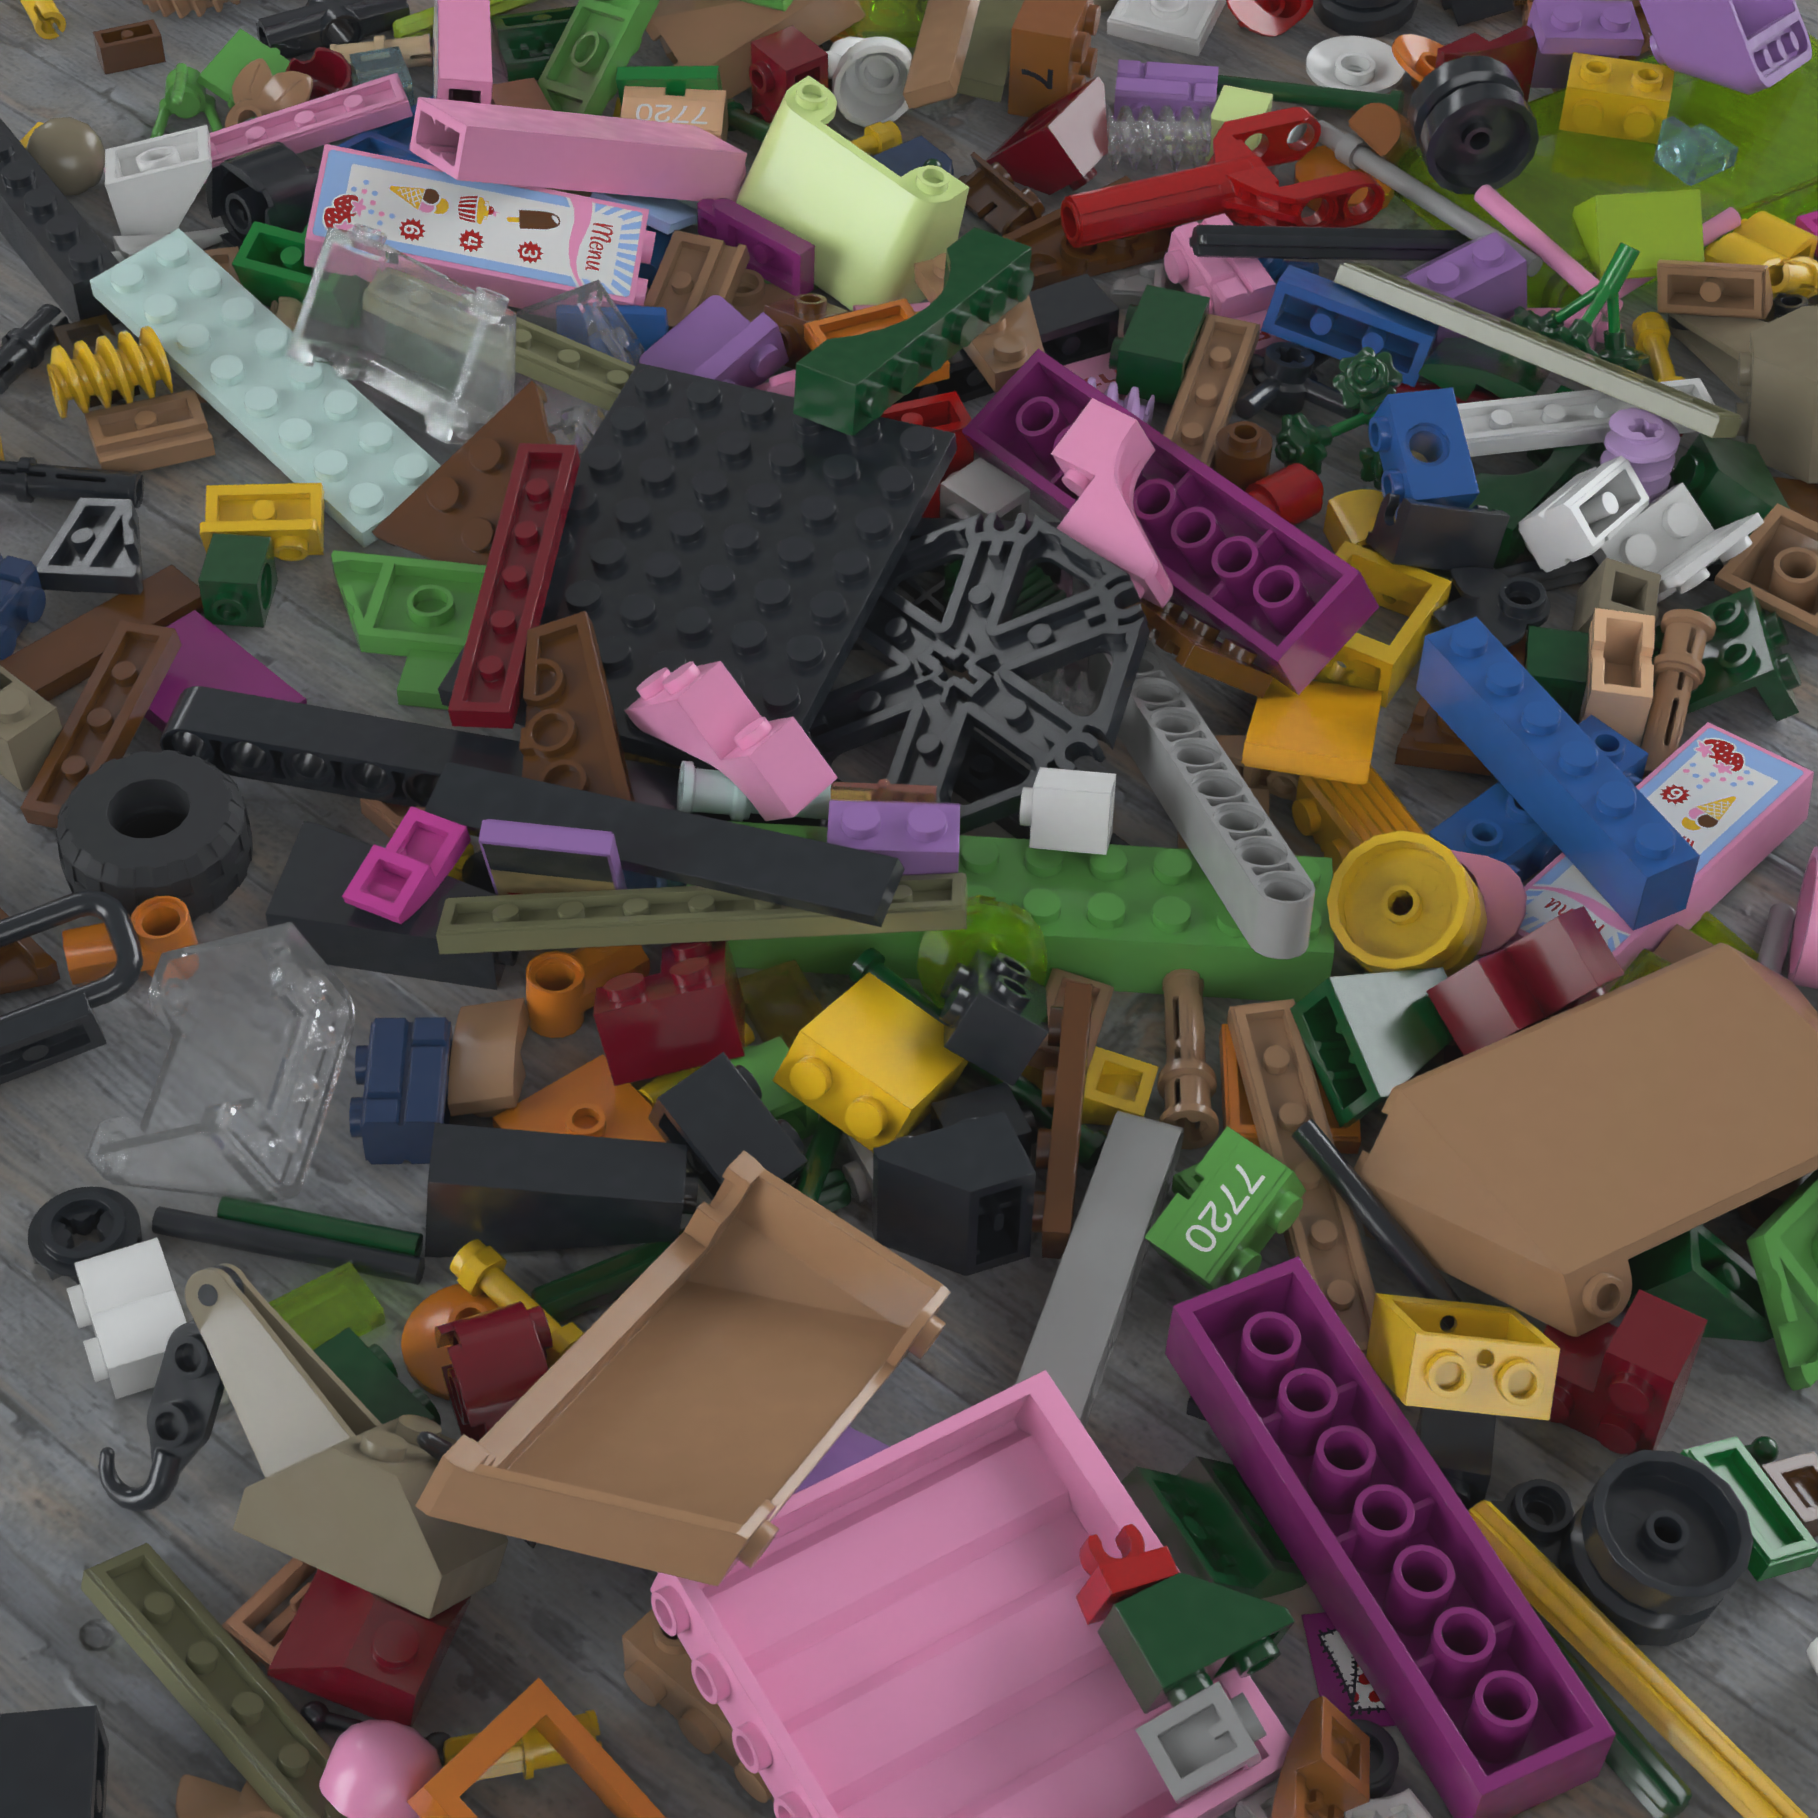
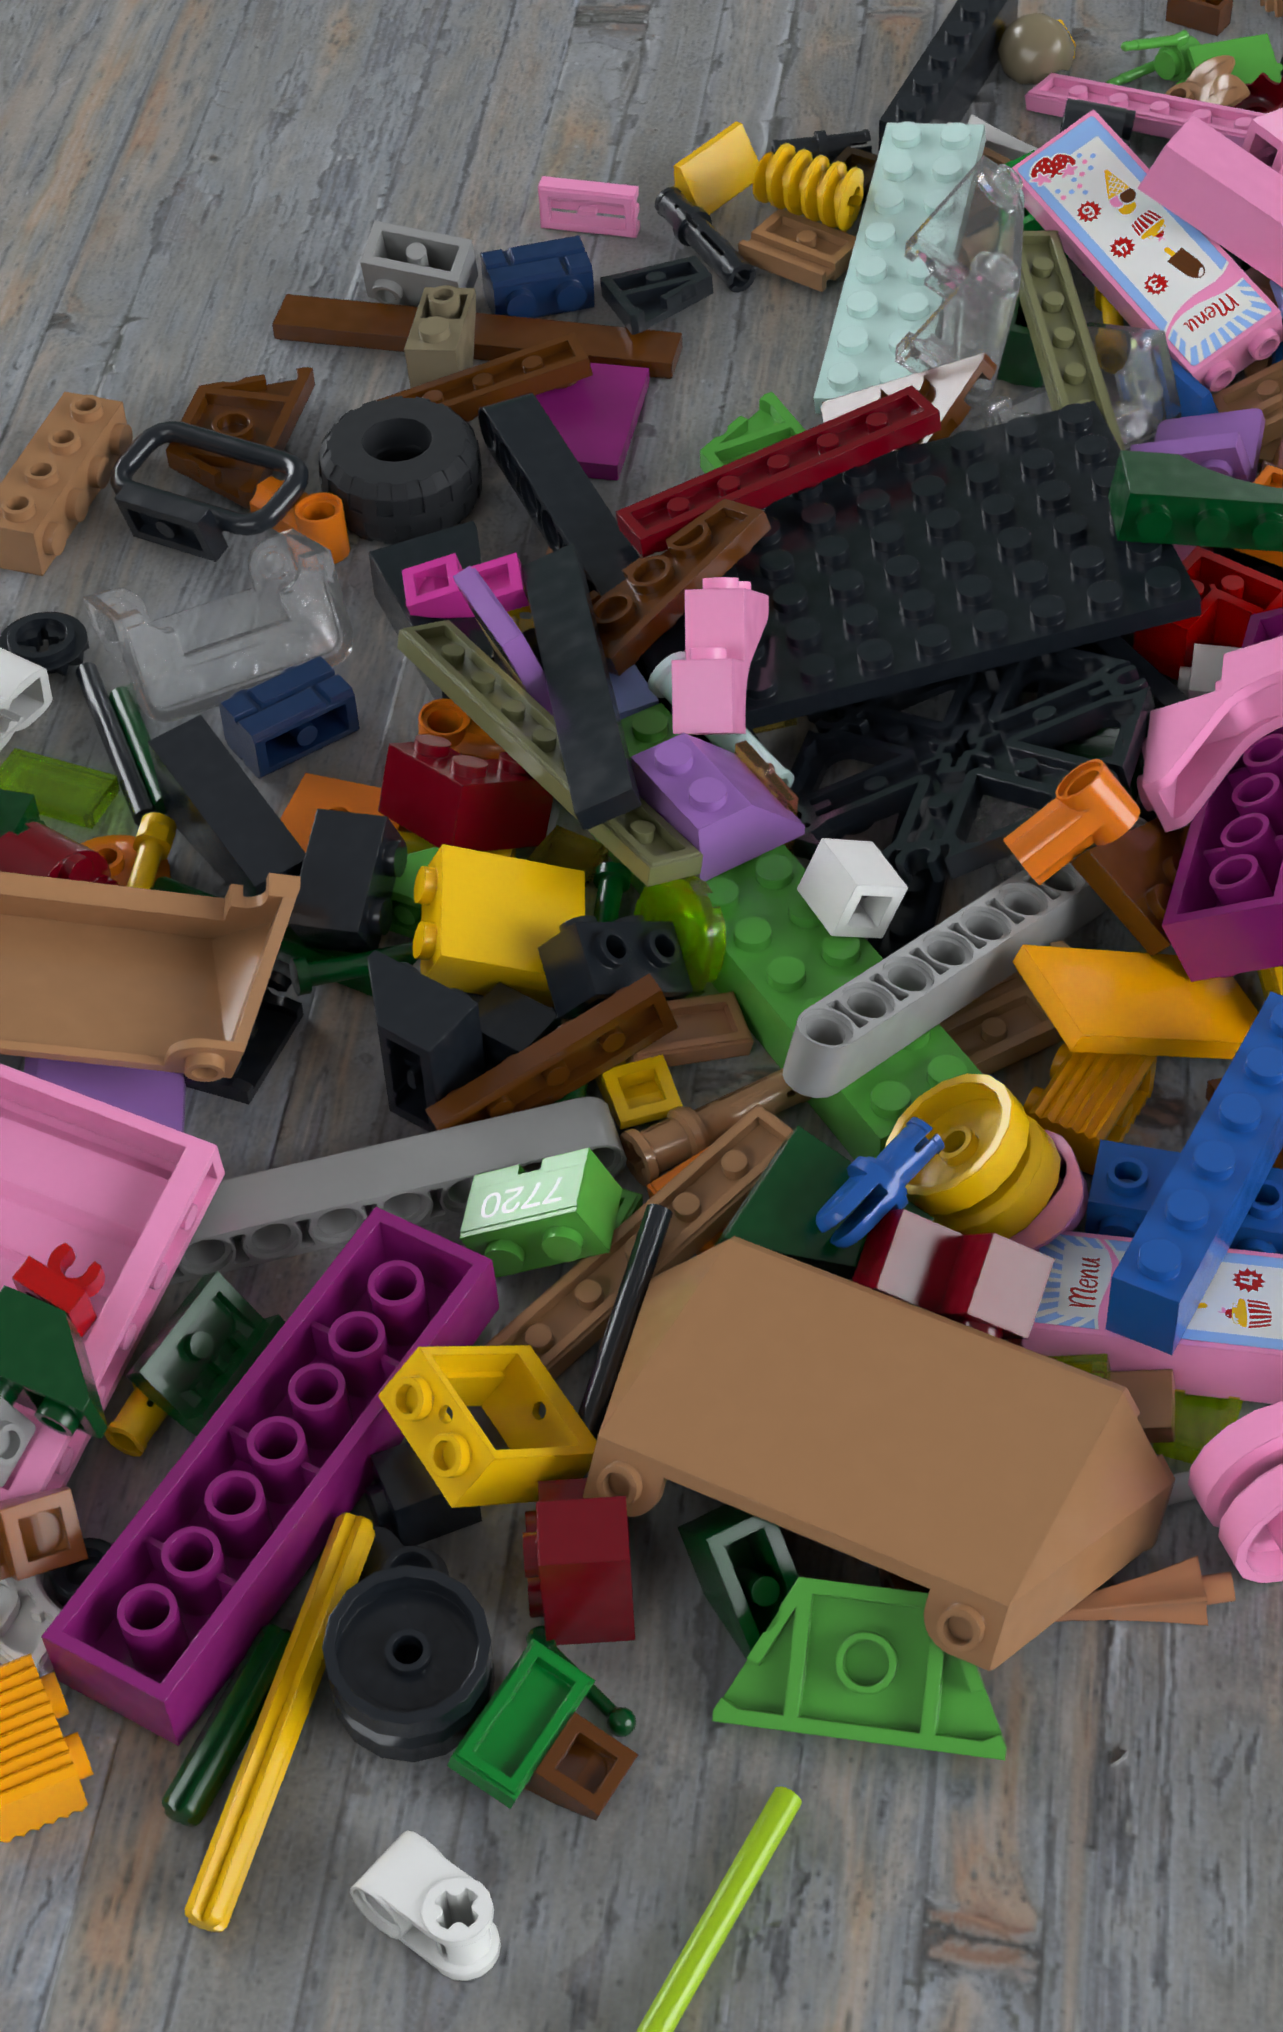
camera: 60 degrees right, 0 degrees up
(157, 180) = (1033, 94): white slope -> none
(238, 580) = (695, 369): dark green brick -> none
(285, 512) = (768, 347): yellow bracket -> none
(487, 1059) = (346, 740): medium nougat slope -> none
(1163, 634) = (1086, 811): none -> orange piece
(1423, 971) = (880, 1181): none -> blue arm

